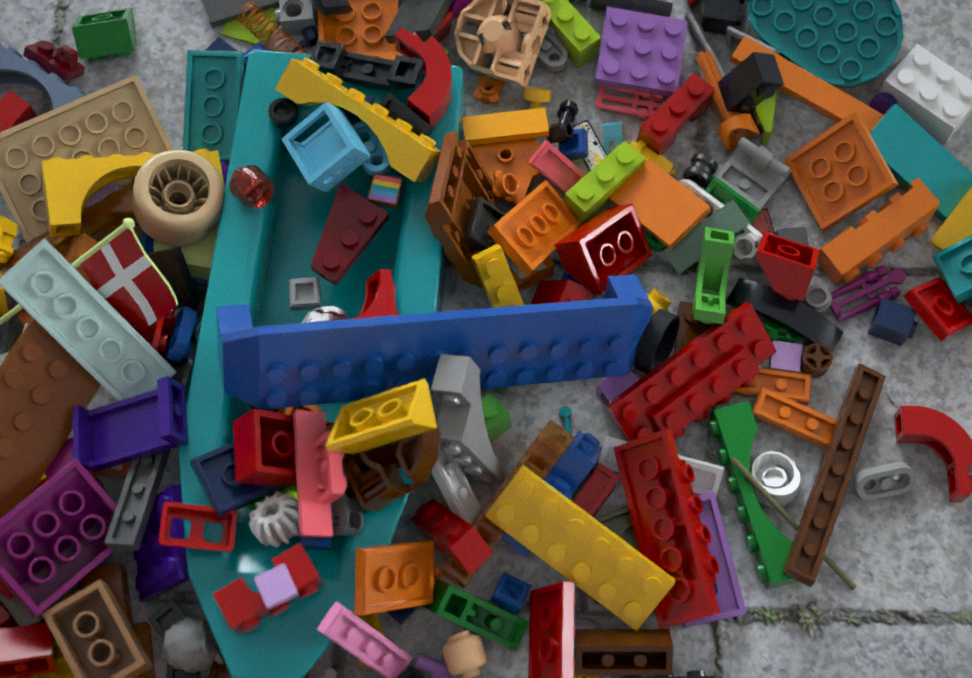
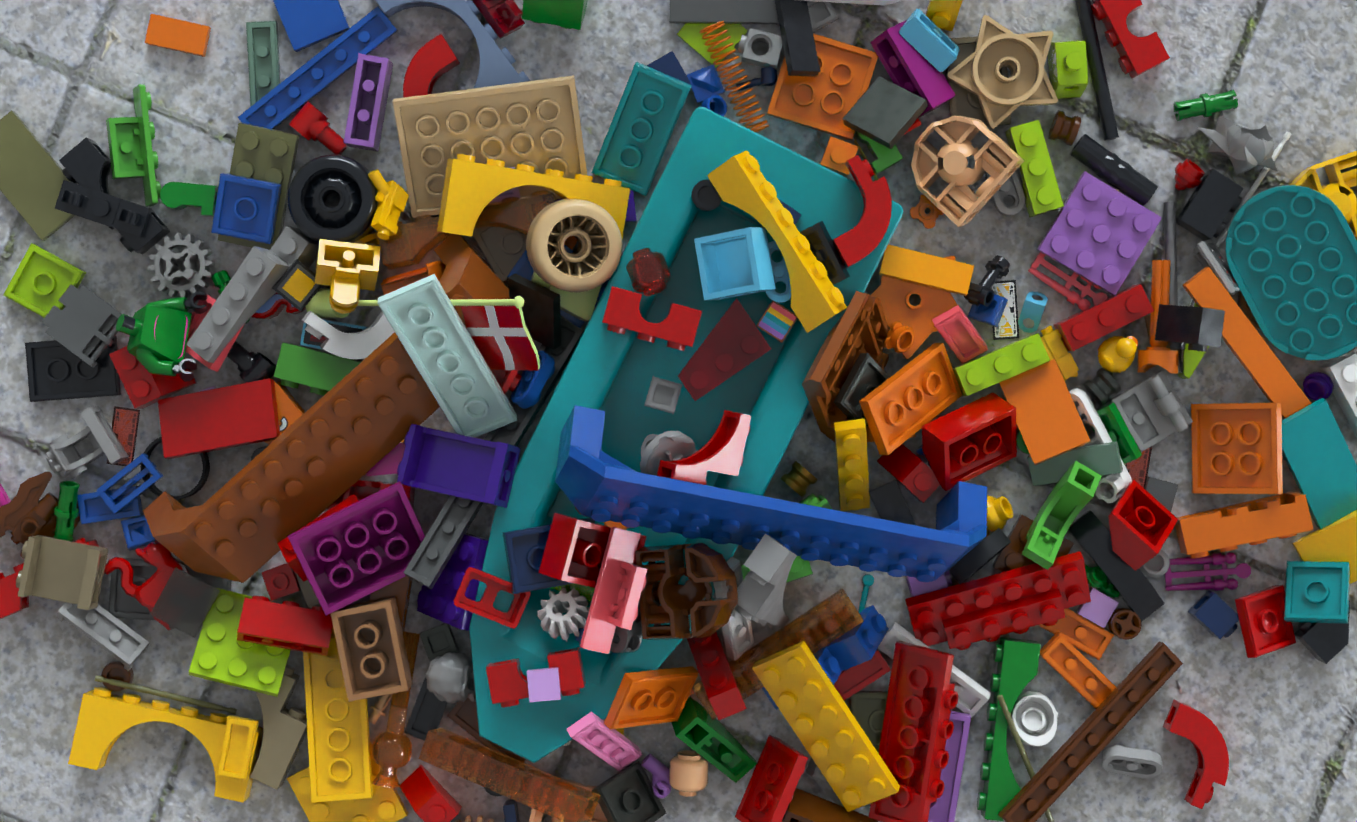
camera: 20 degrees right, 20 degrees up
(292, 226) = (624, 313): none -> red arch
(366, 69) = (806, 179): black slope -> none
(382, 419) = (689, 579): yellow slope -> none
(510, 593) = (750, 731): blue tile -> none
(537, 96) = (973, 239): yellow tile -> none
(701, 136) = (1117, 353): none -> yellow animal

